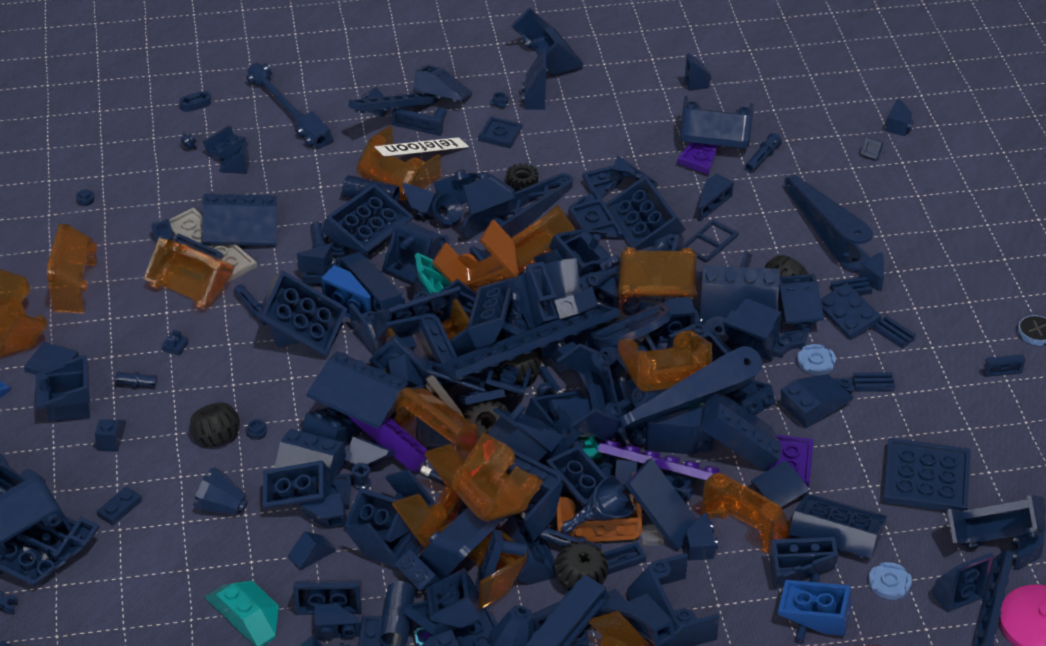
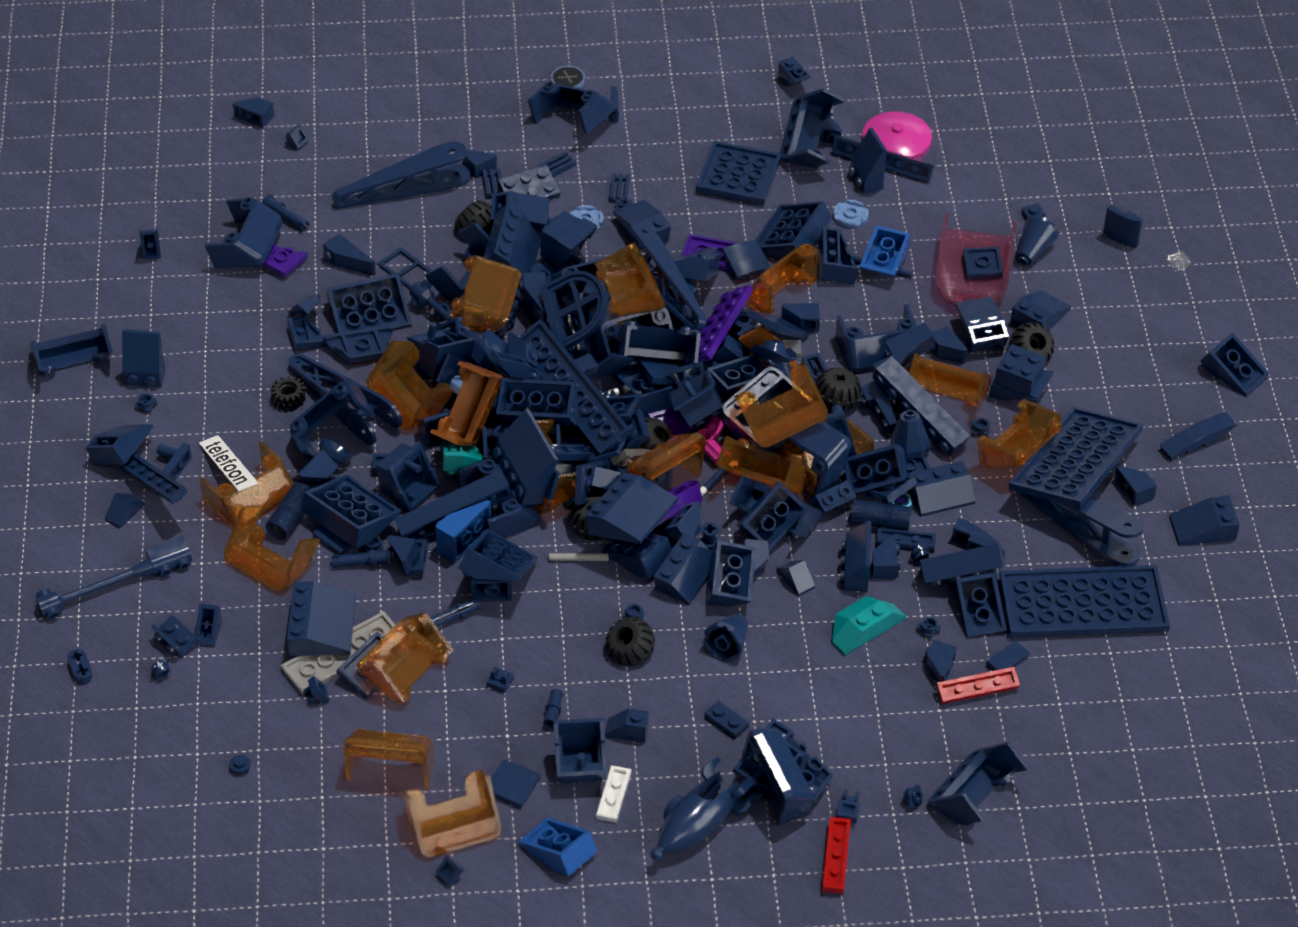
camera: 85 degrees left, 5 degrees up
(33, 430) = (613, 794): none -> white tile
(322, 179) = (250, 556): none -> clear orange windscreen
(500, 132) = (200, 407): dark blue tile -> none
(981, 329) = (590, 105): none -> dark blue windscreen

